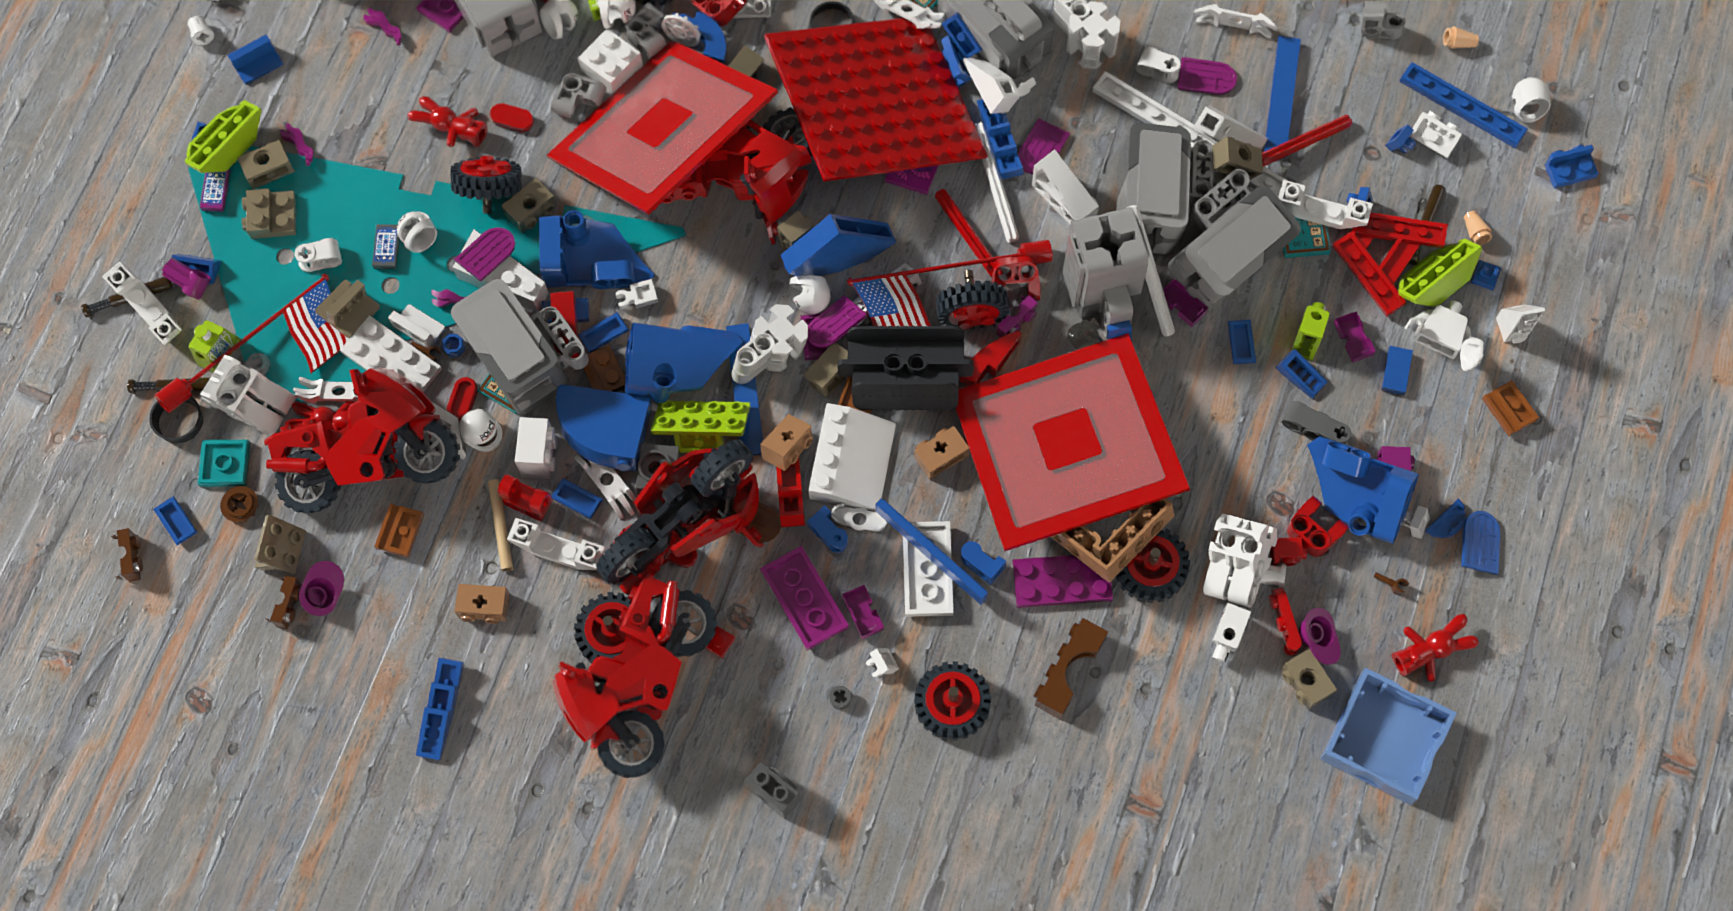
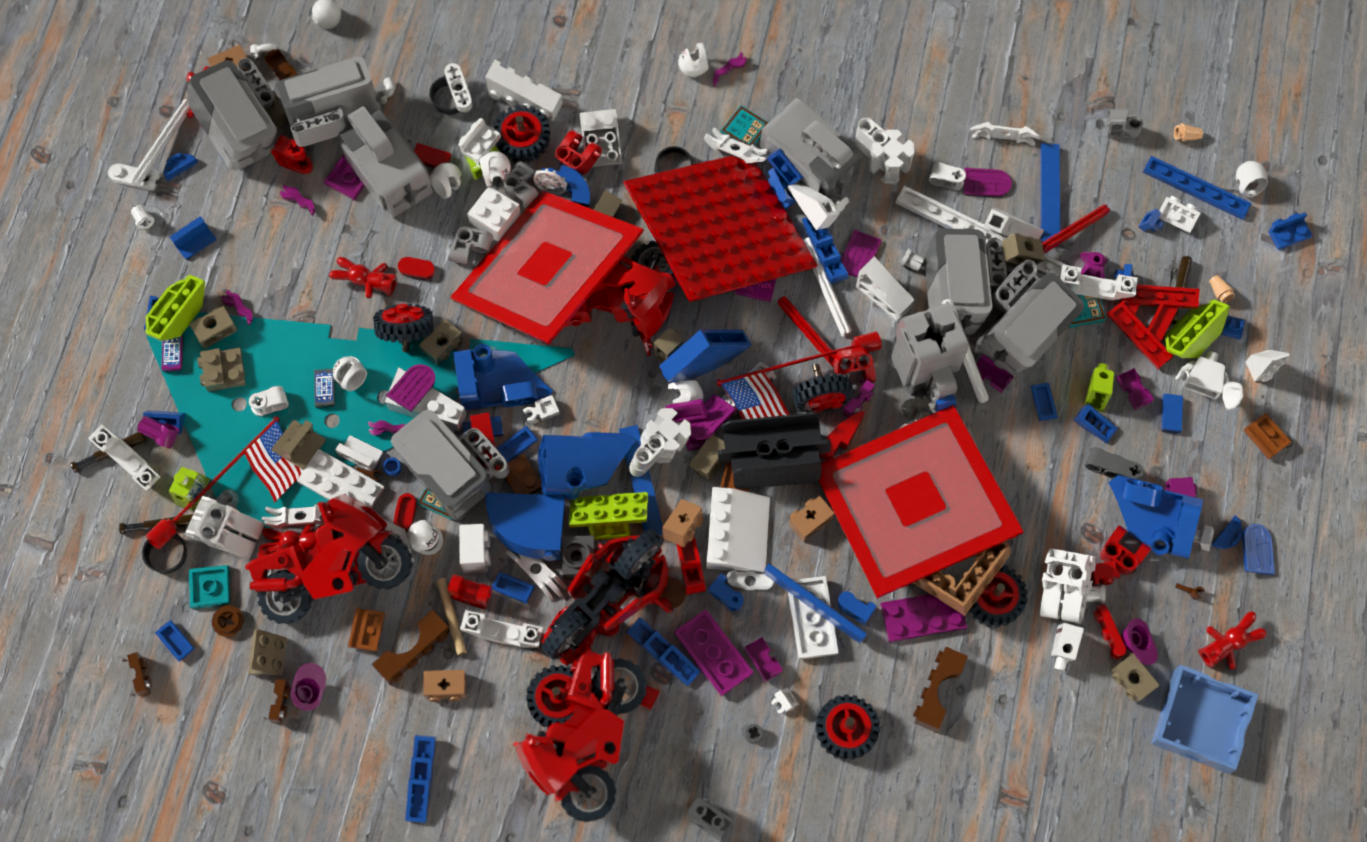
camera: 10 degrees left, 0 degrees up
(426, 574) = (393, 666): none -> reddish brown arch
(744, 590) = (663, 651): none -> blue slope
(810, 311) = (689, 410): none -> magenta tile
(1103, 160) = (912, 260): none -> white bush
(1323, 184) = (1093, 264): none -> magenta brick

